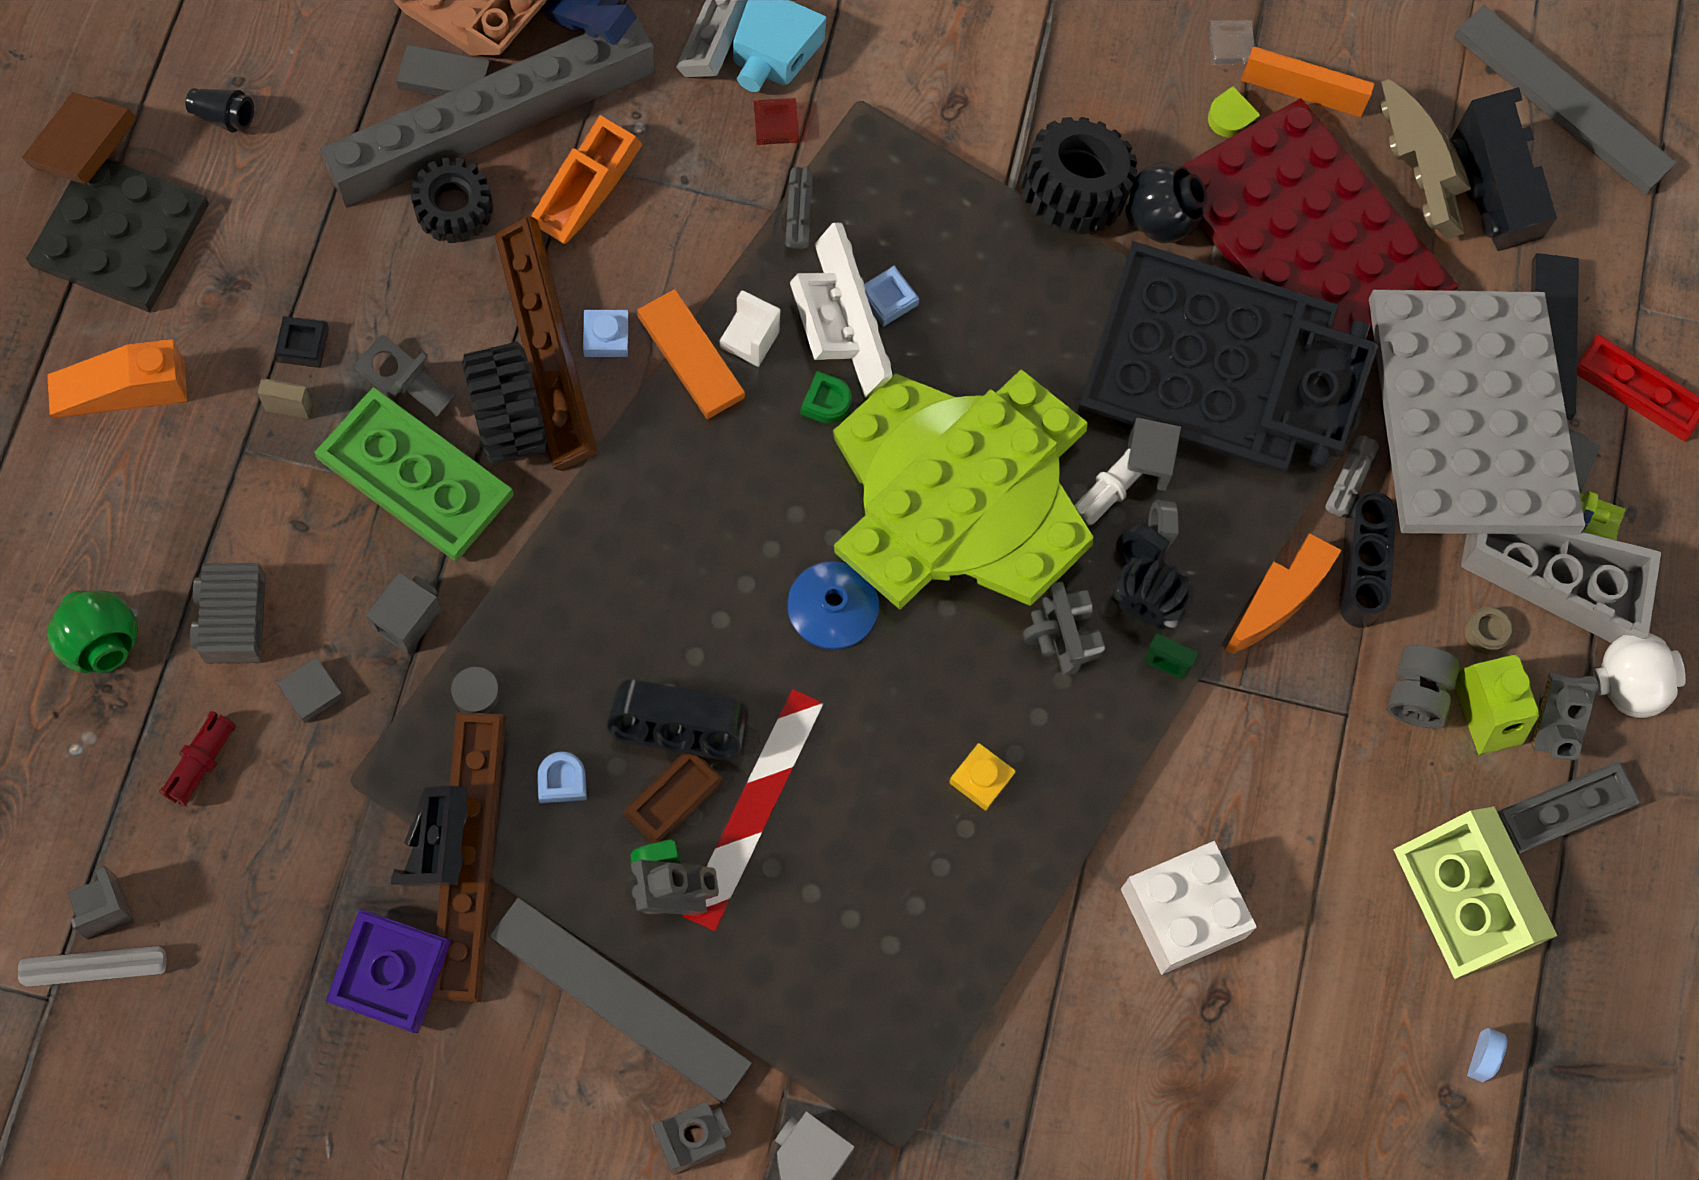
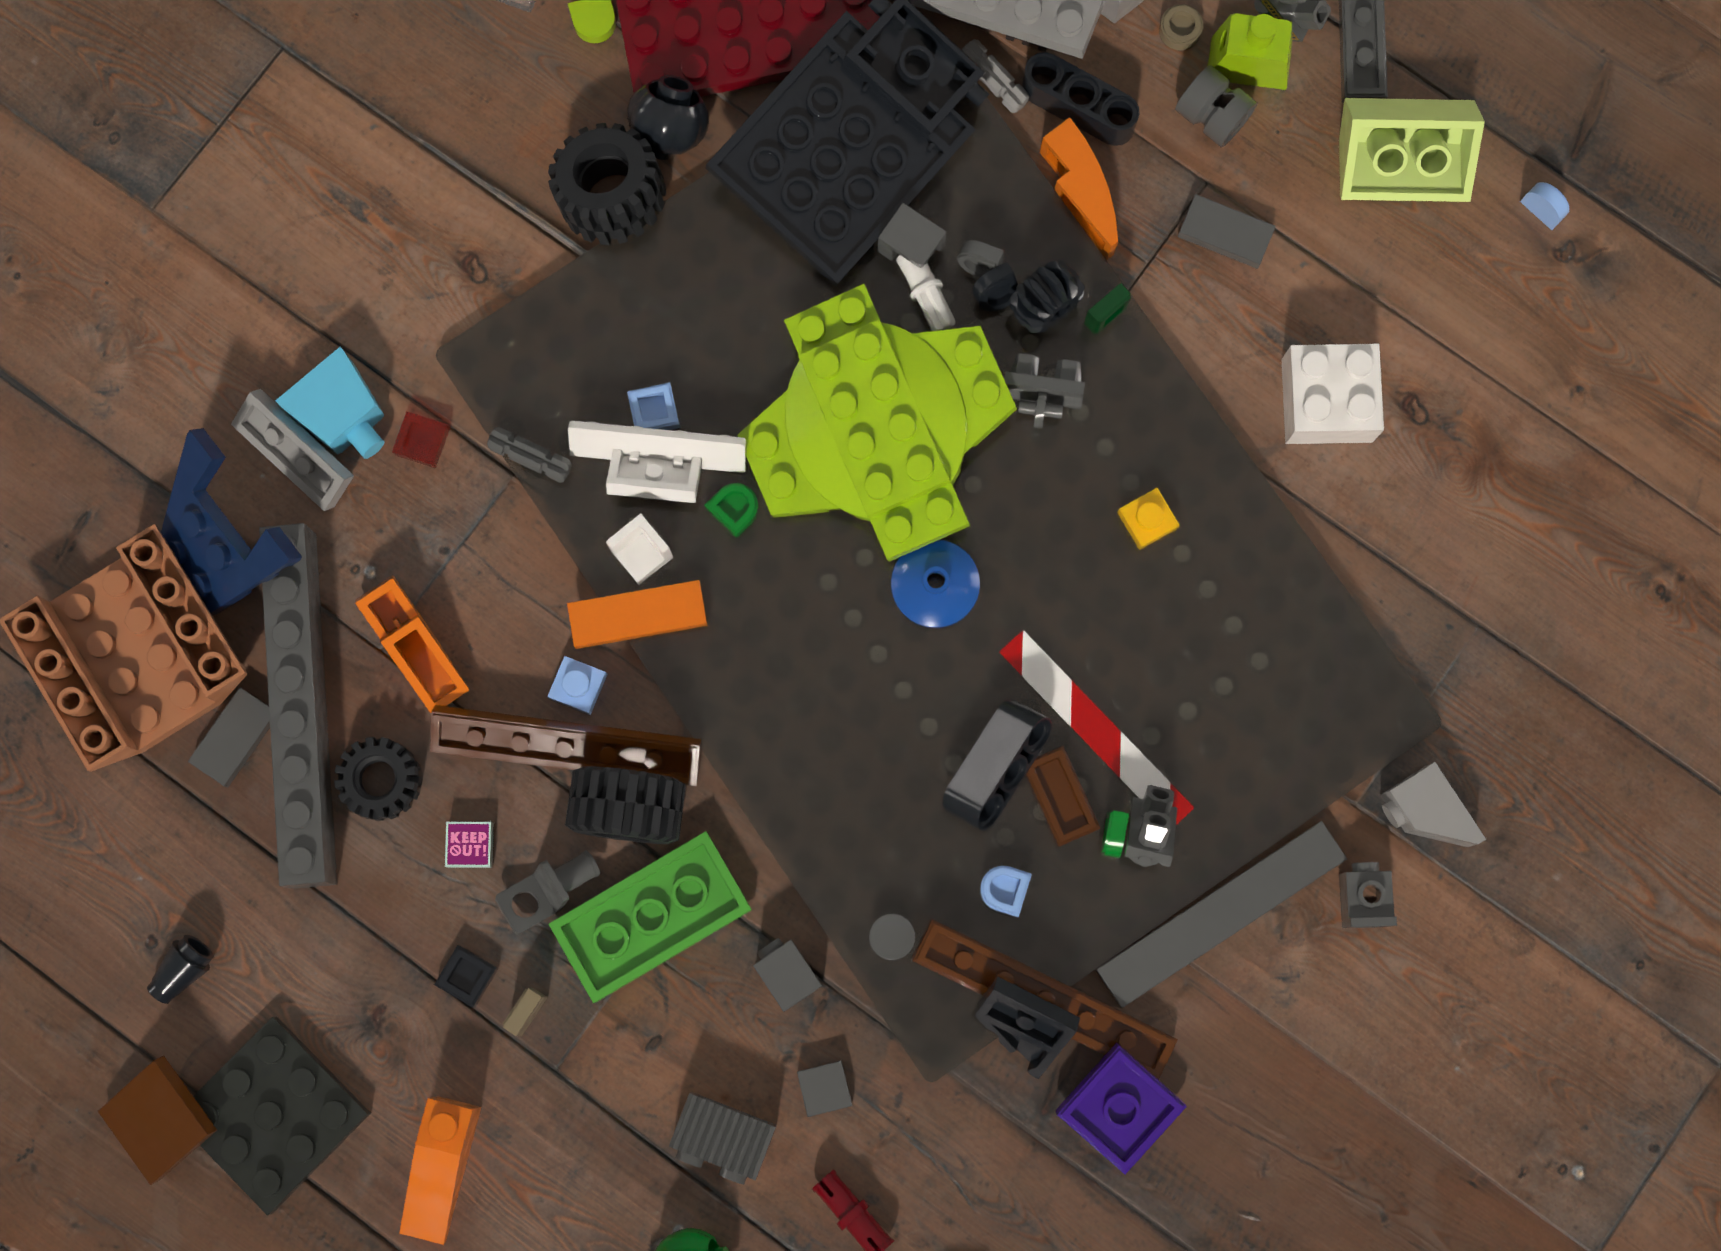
camera: 60 degrees left, 10 degrees up
(422, 298) = (469, 845): none -> tile
(1306, 749) = (1226, 231): none -> dark grey tile

